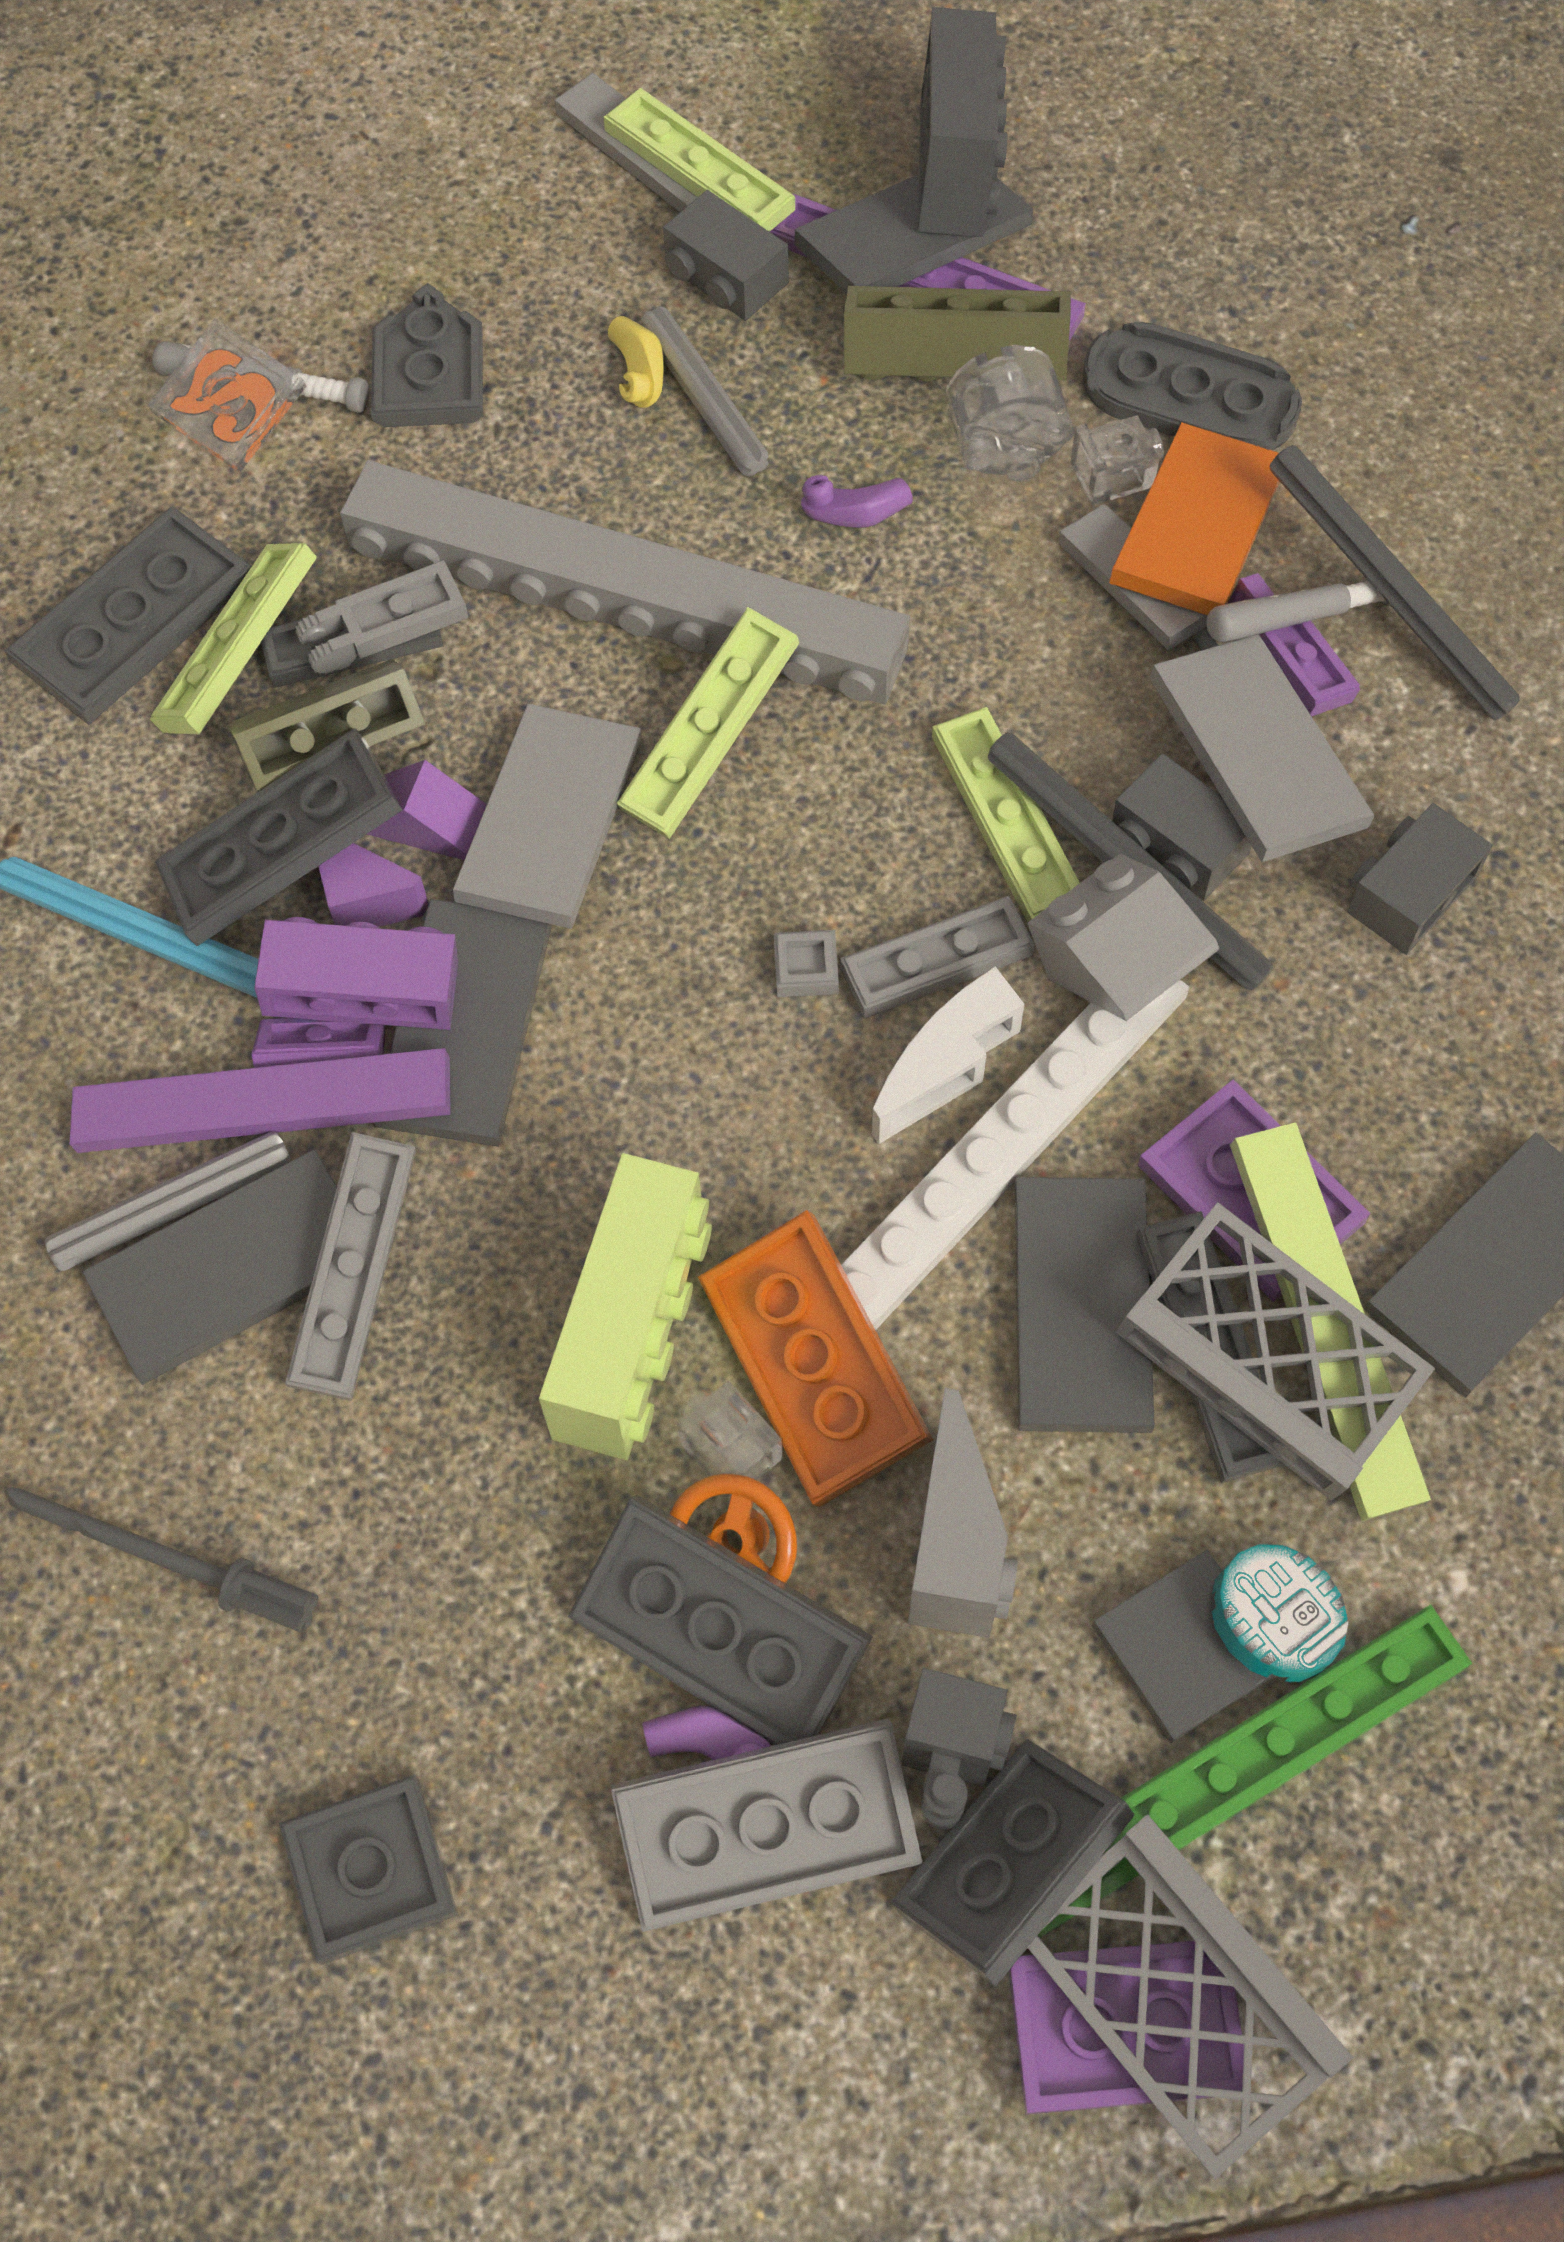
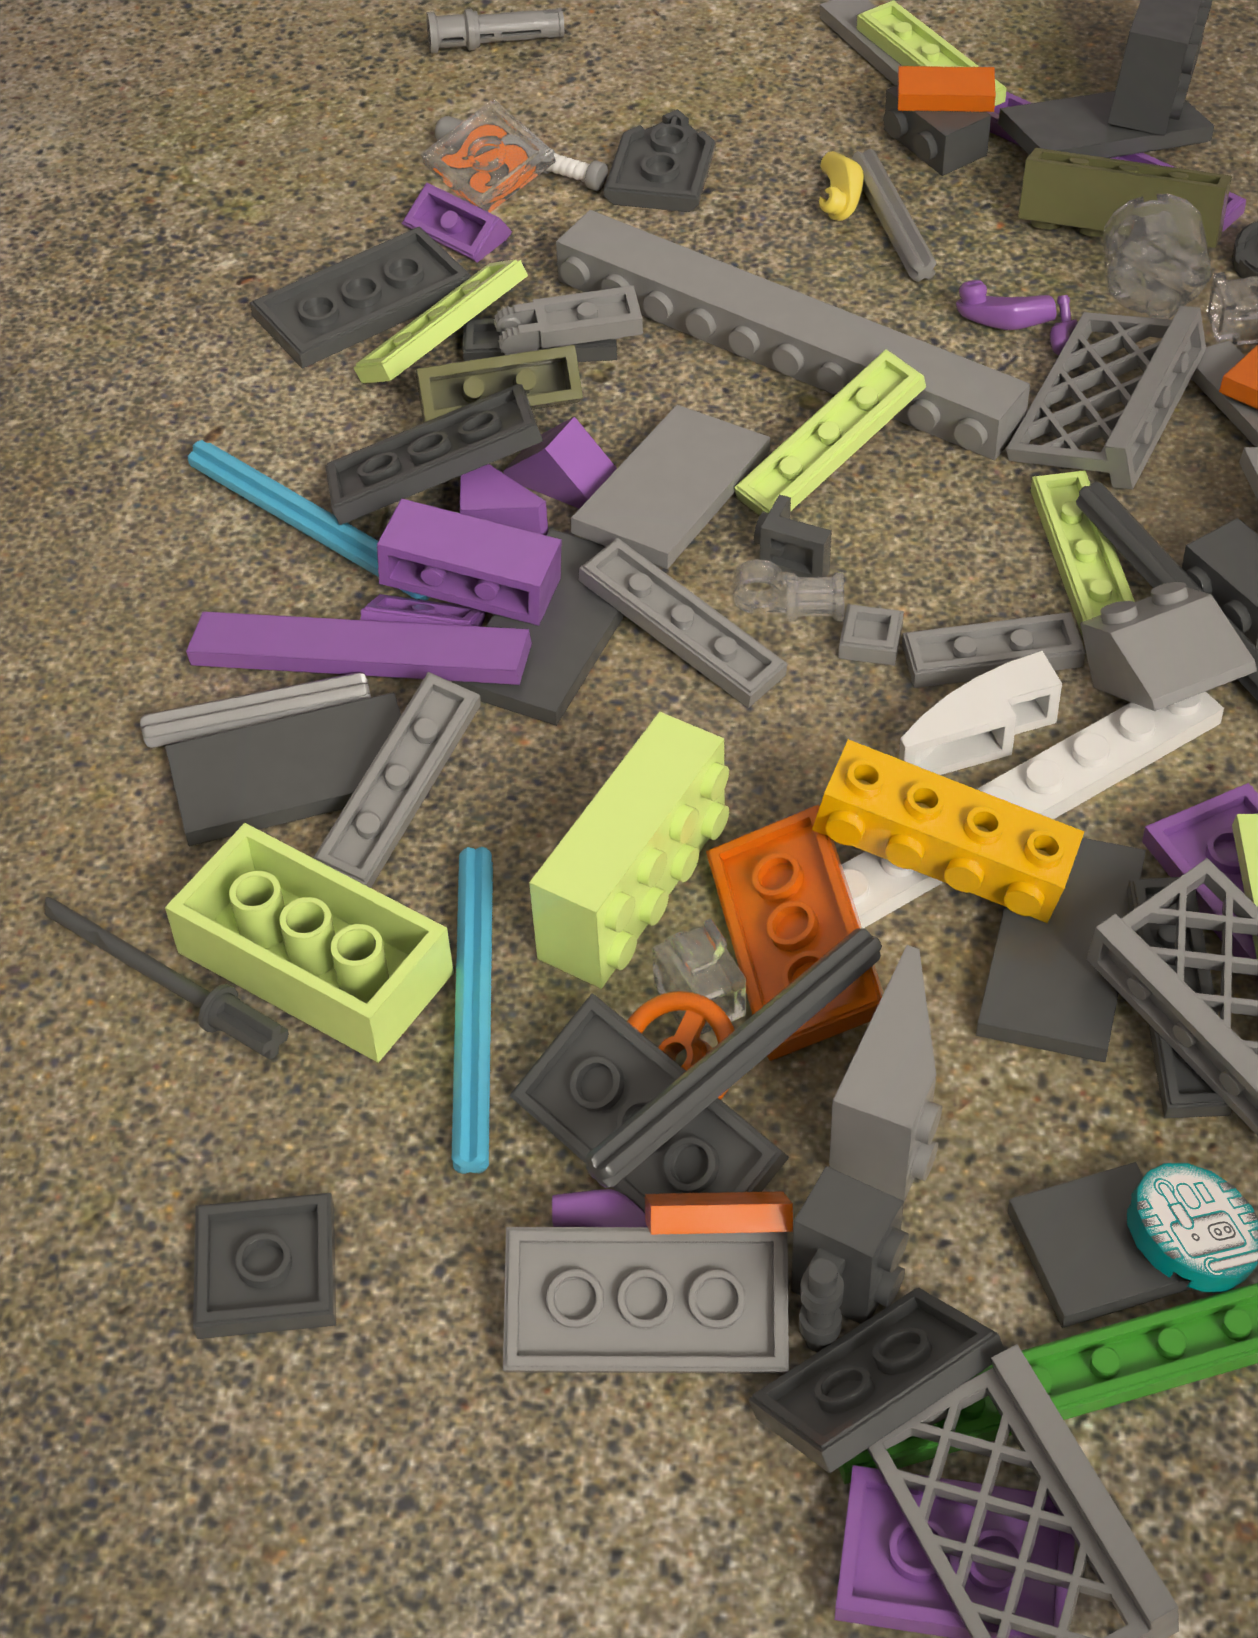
camera: 15 degrees right, 15 degrees down
(158, 204) = (472, 29): none -> light grey pin
(211, 492) = (456, 223): none -> medium lavender slope
(313, 1490) = (311, 941): none -> yellowish green brick
(502, 1521) = (472, 1012): none -> medium azure axle
(603, 993) = (683, 622): none -> light grey tile
(685, 931) = (788, 593): none -> clear connector
(700, 873) = (792, 543): none -> dark grey bracket
(731, 218) = (946, 88): none -> orange tile
(795, 1548) = (732, 1058): none -> dark grey axle
(820, 1725) = (718, 1212): none -> orange tile
(922, 516) = (1062, 330): none -> medium lavender piece
(948, 1221) = (948, 831): none -> yellow brick
(1037, 618) = (1147, 399): none -> light grey fence

